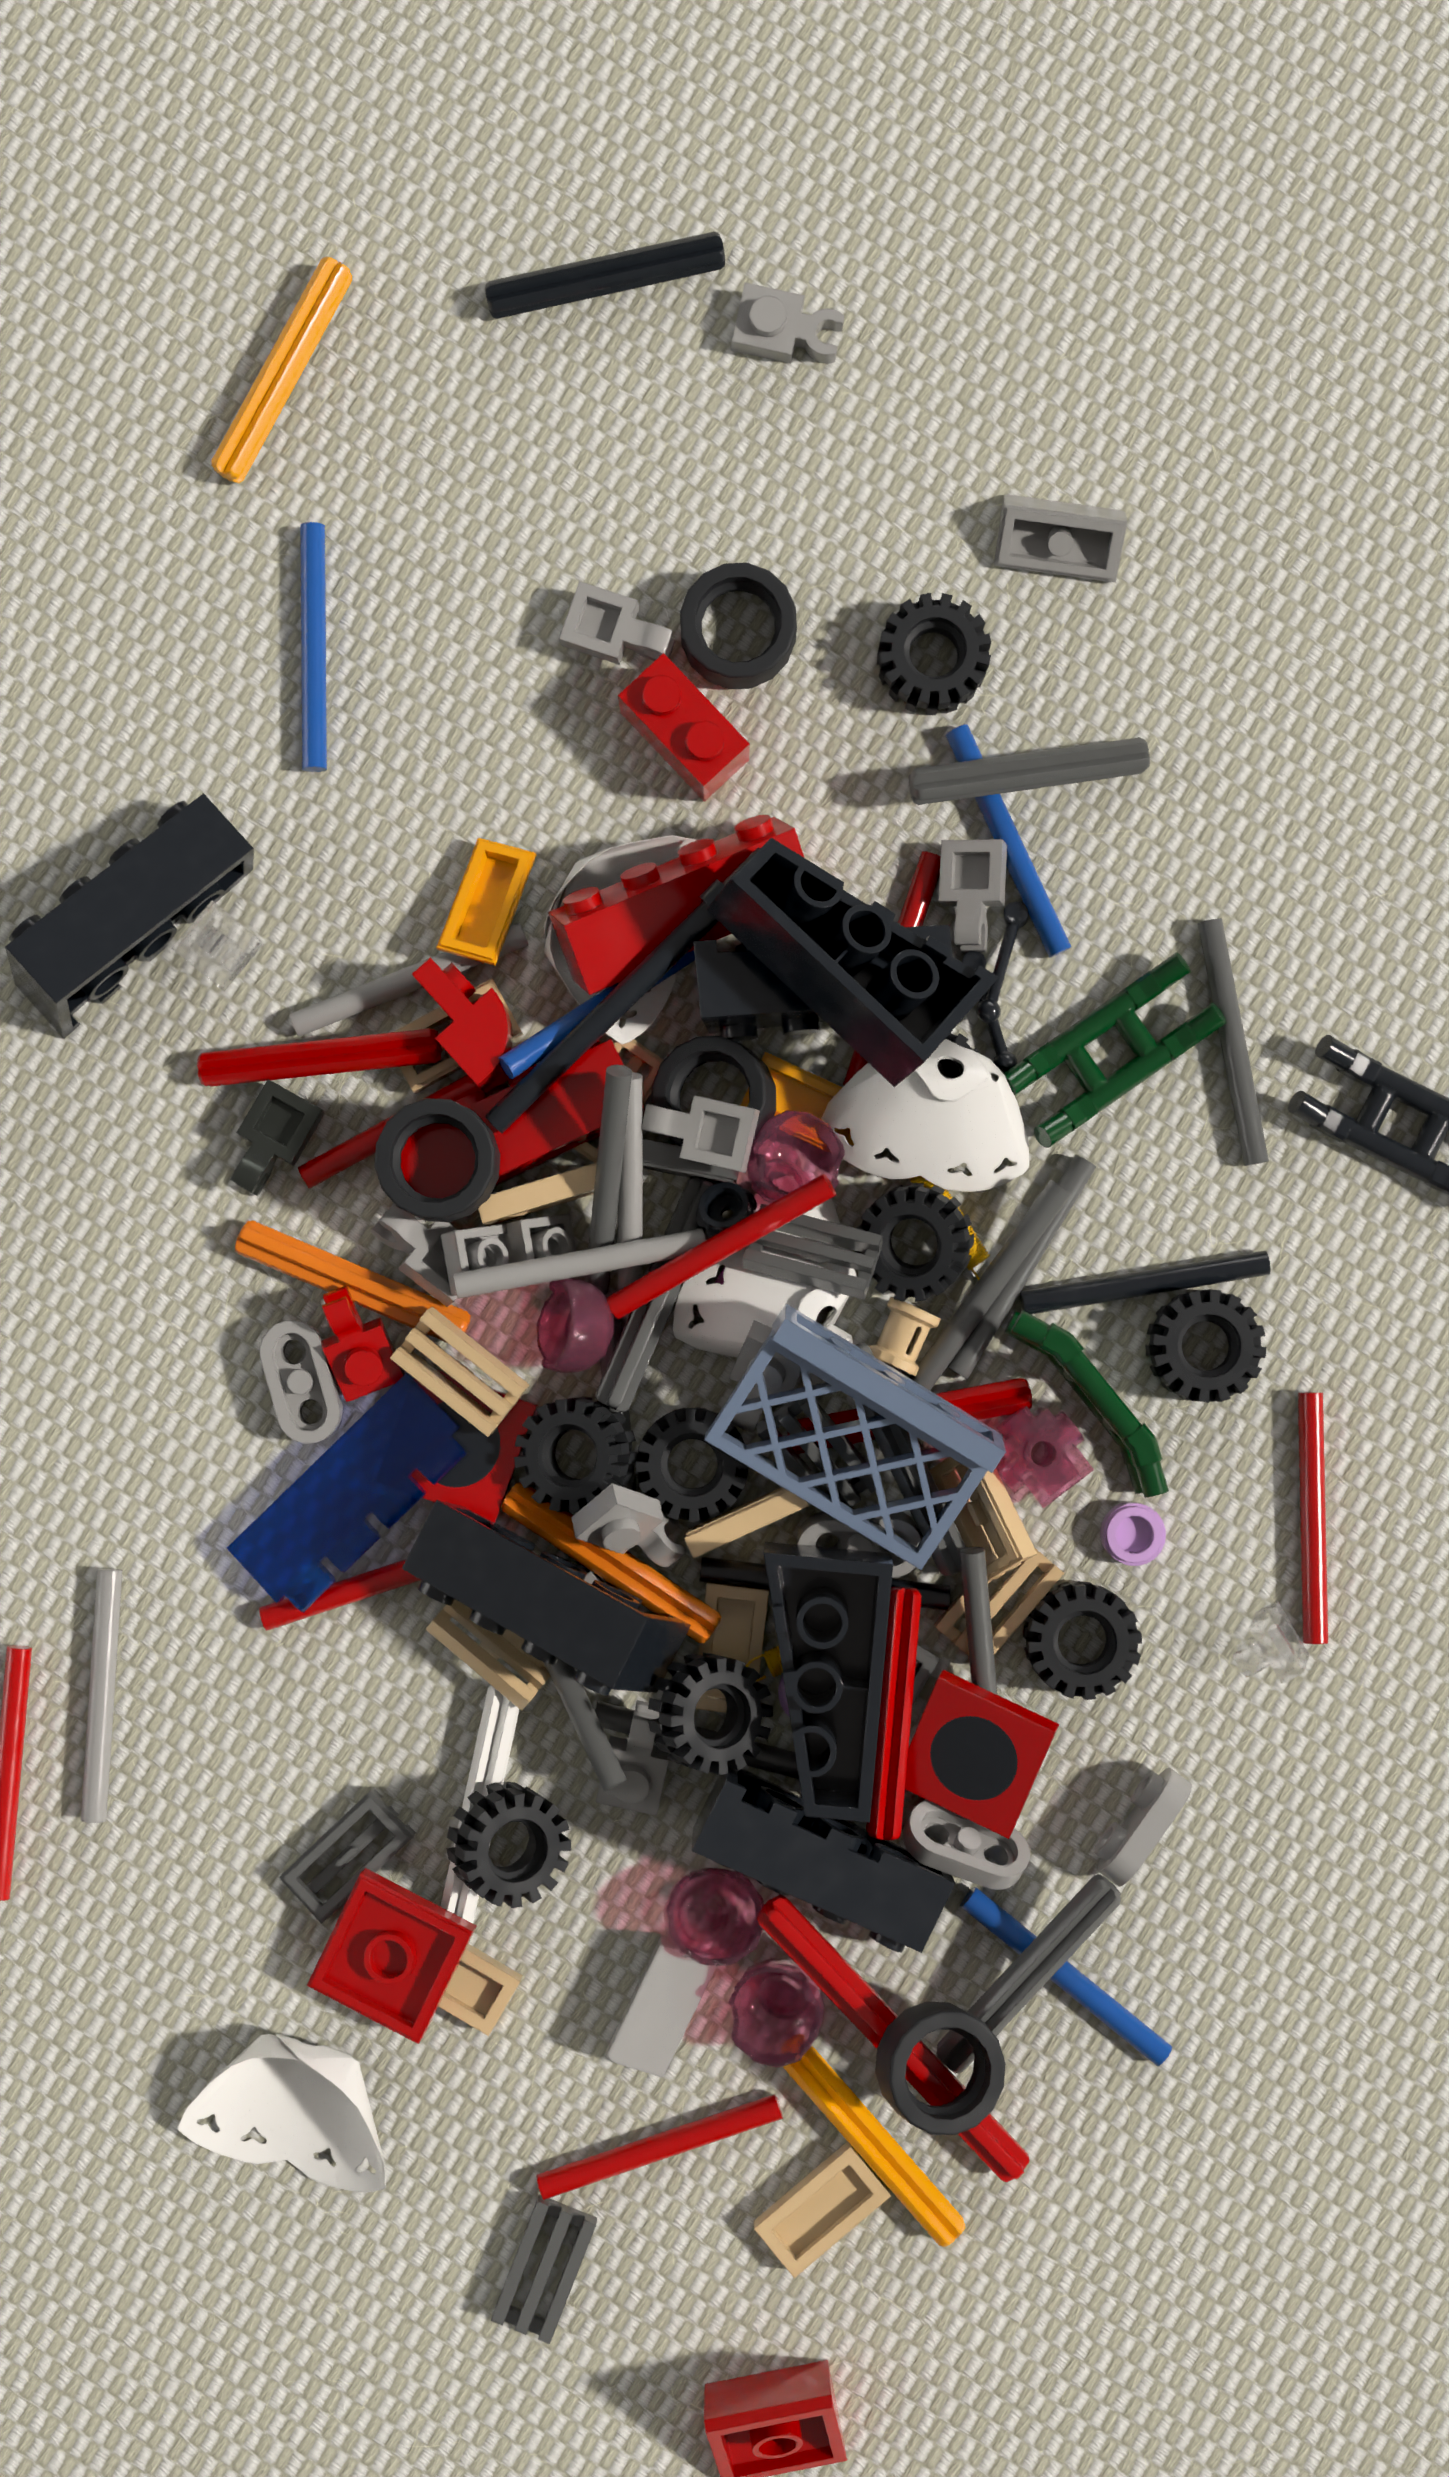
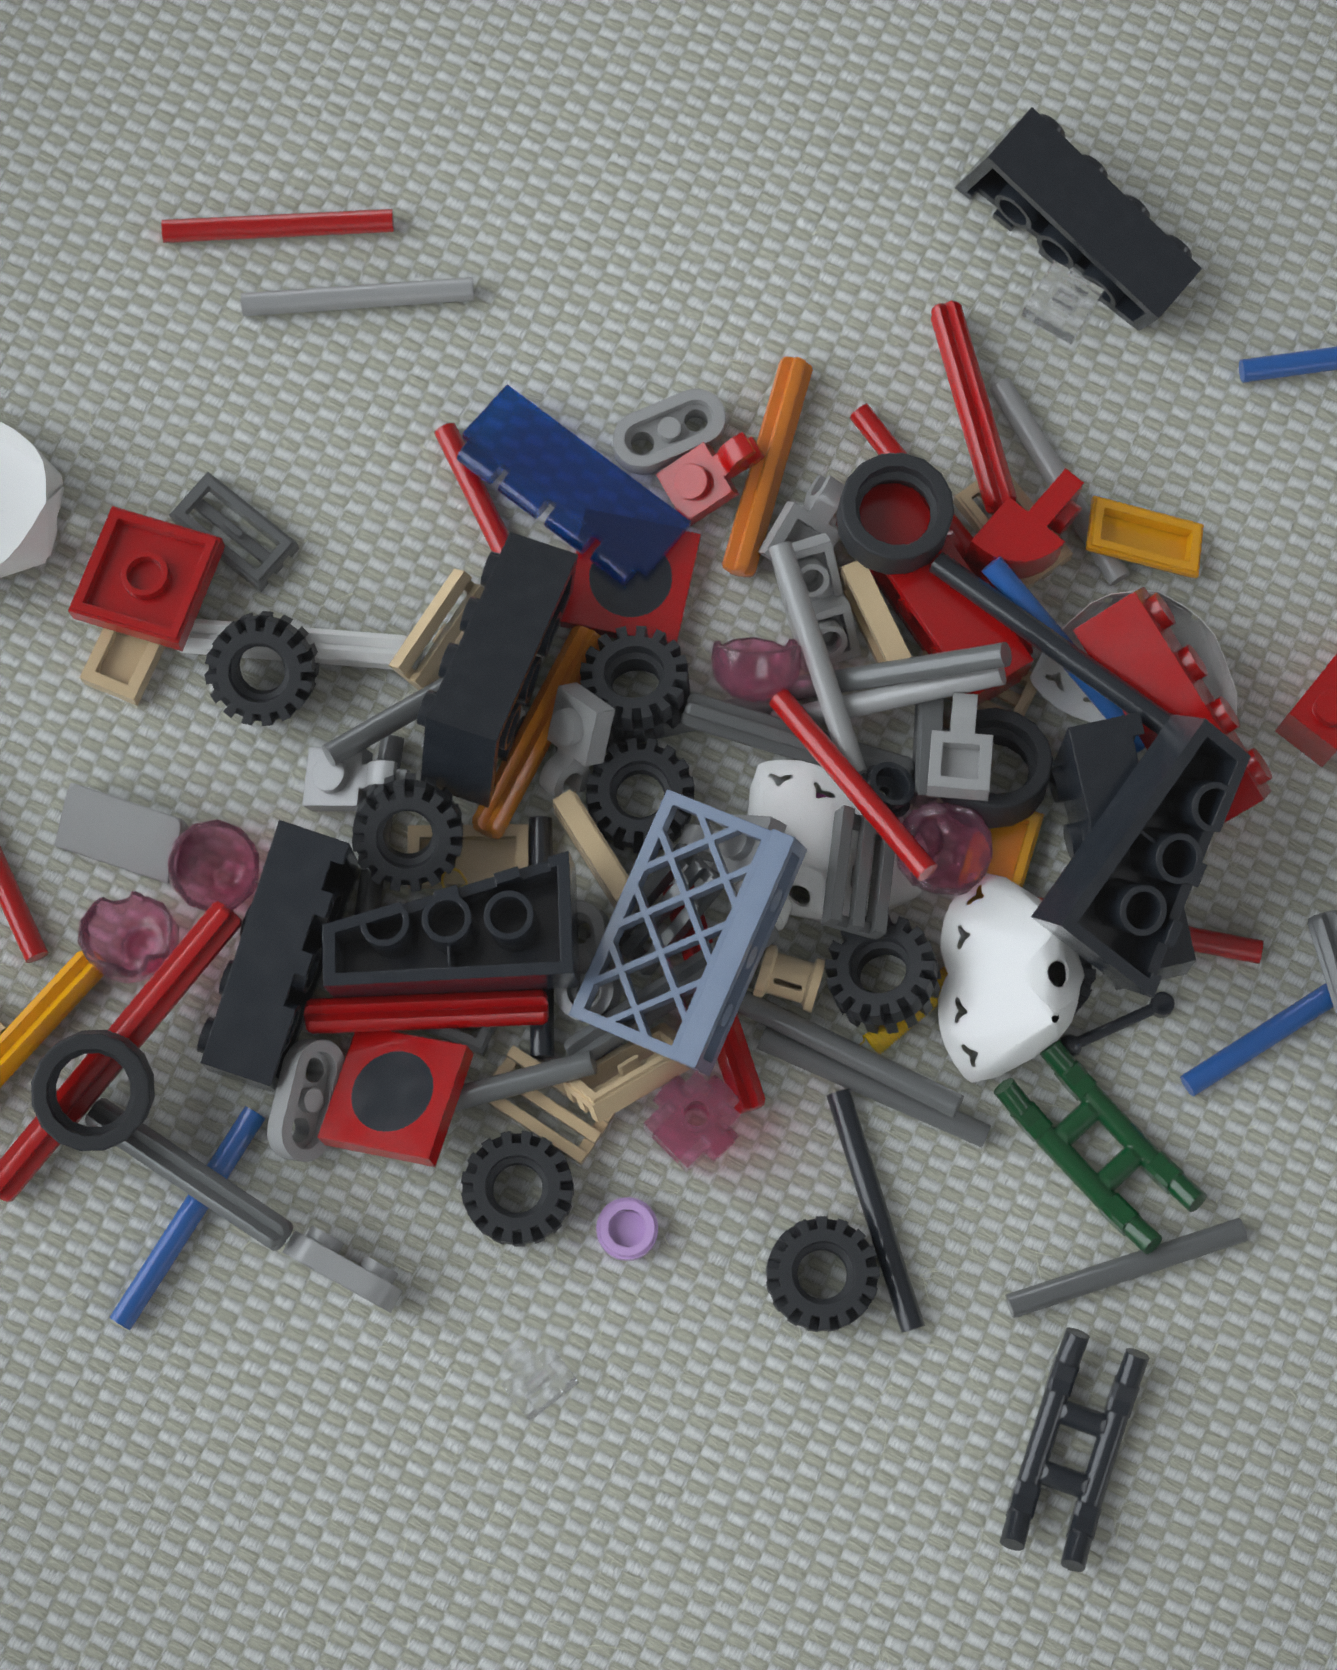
camera: 80 degrees right, 10 degrees down
(278, 1128) = (901, 380): pearl dark grey plate -> none
(445, 1389) = (722, 525): tan tile -> none
(971, 880) = (1241, 985): light grey plate -> none
(1015, 917) = (1213, 1039): black hinge -> none
(1134, 1439) = (794, 1134): dark green piece -> none
(1313, 1518) = (666, 1407): red bar -> none

